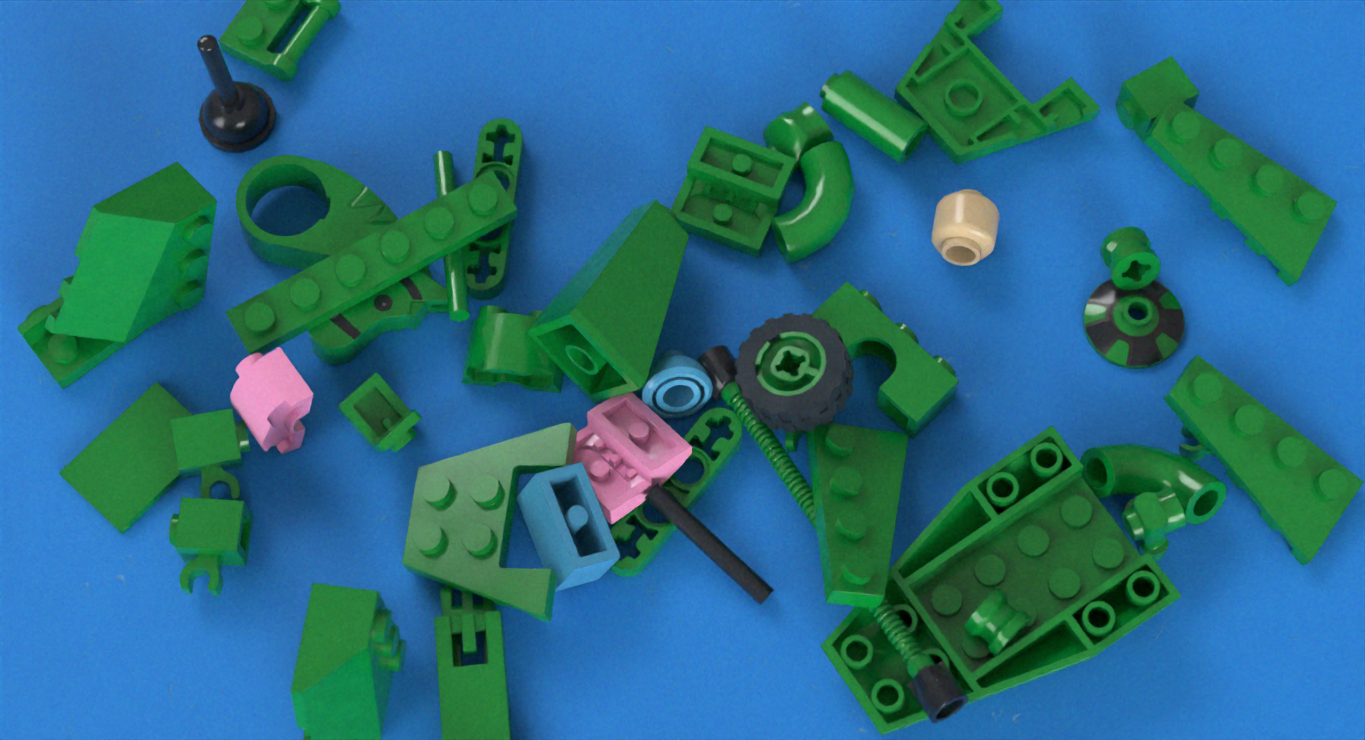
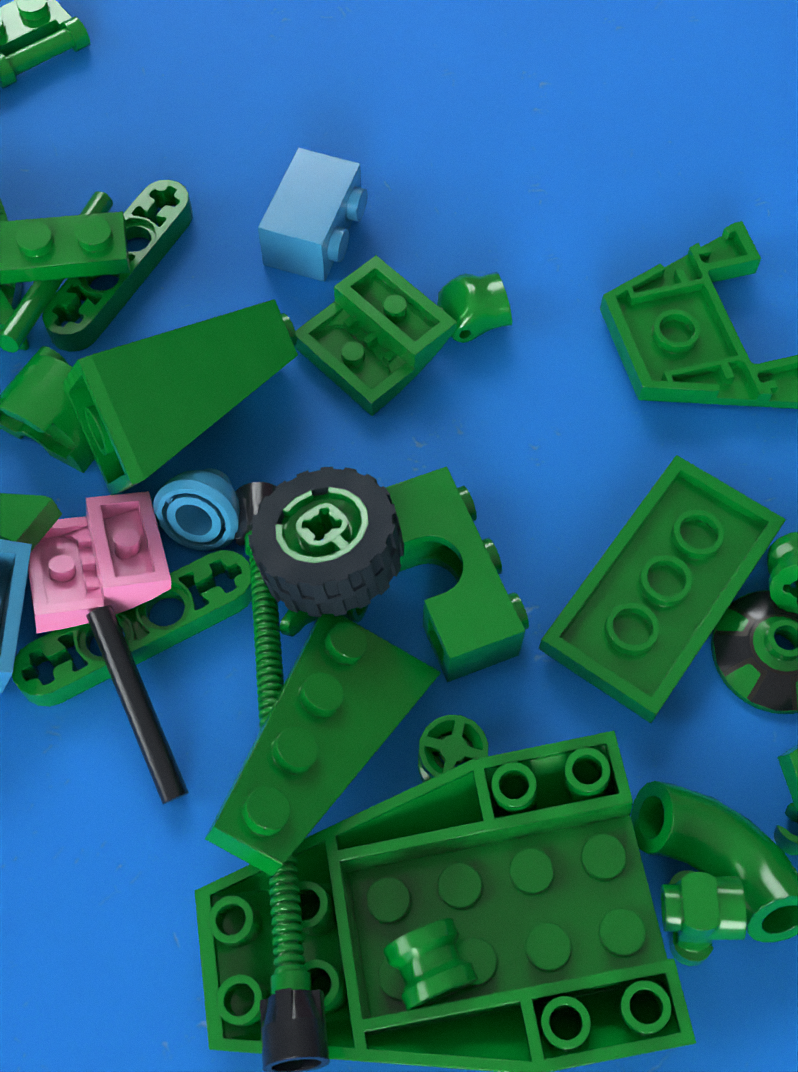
camera: 20 degrees right, 5 degrees down
(630, 105) = (312, 214): none -> dark azure brick
(824, 205) = (465, 384): green cylinder -> none
(873, 115) = (567, 315): green brick -> none
(944, 476) = (454, 740): none -> green wheel
(965, 227) = (616, 464): tan head -> none
(1036, 306) = (661, 587): none -> green plate

